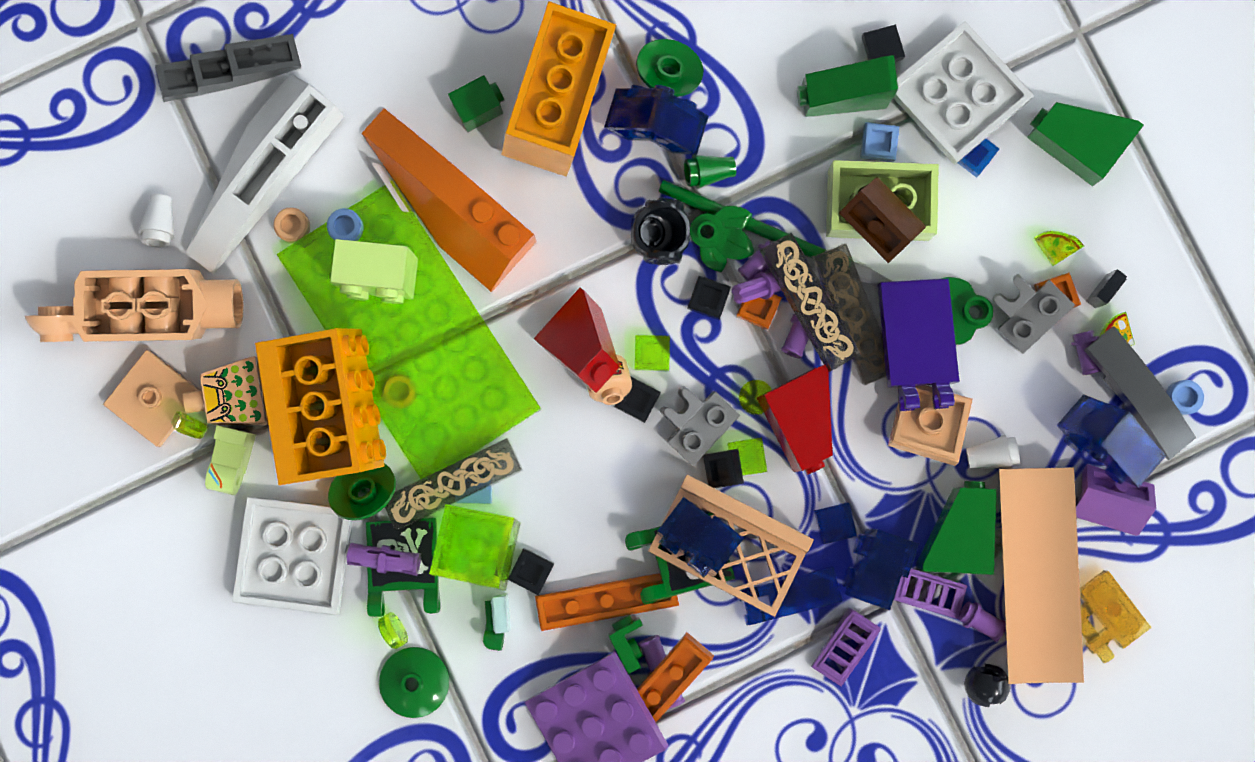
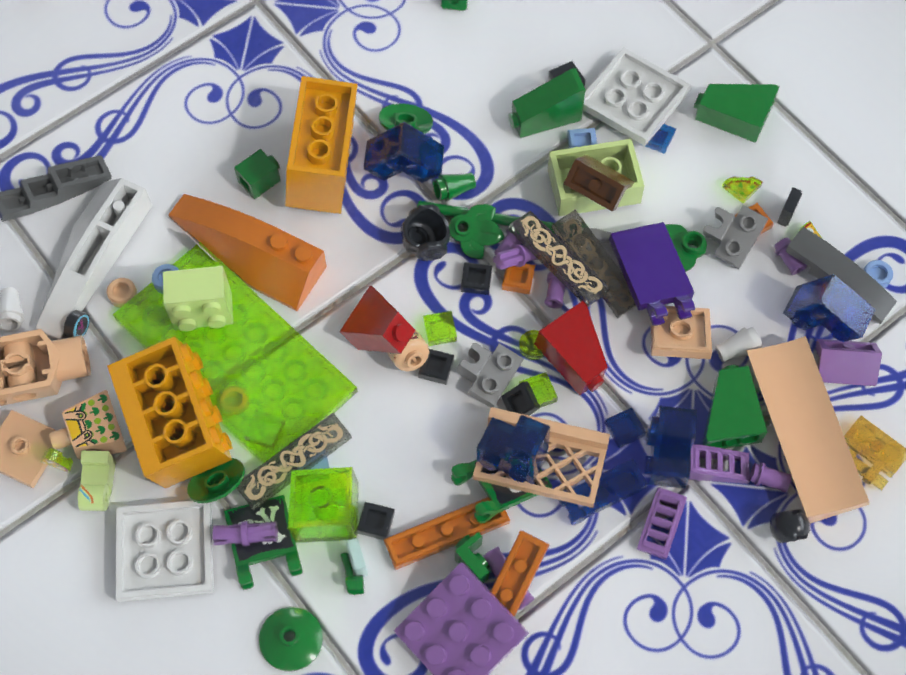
camera: 15 degrees left, 20 degrees down
(233, 259) = (76, 324): none -> black tile
(392, 630) = (263, 593): clear neon green tile -> none

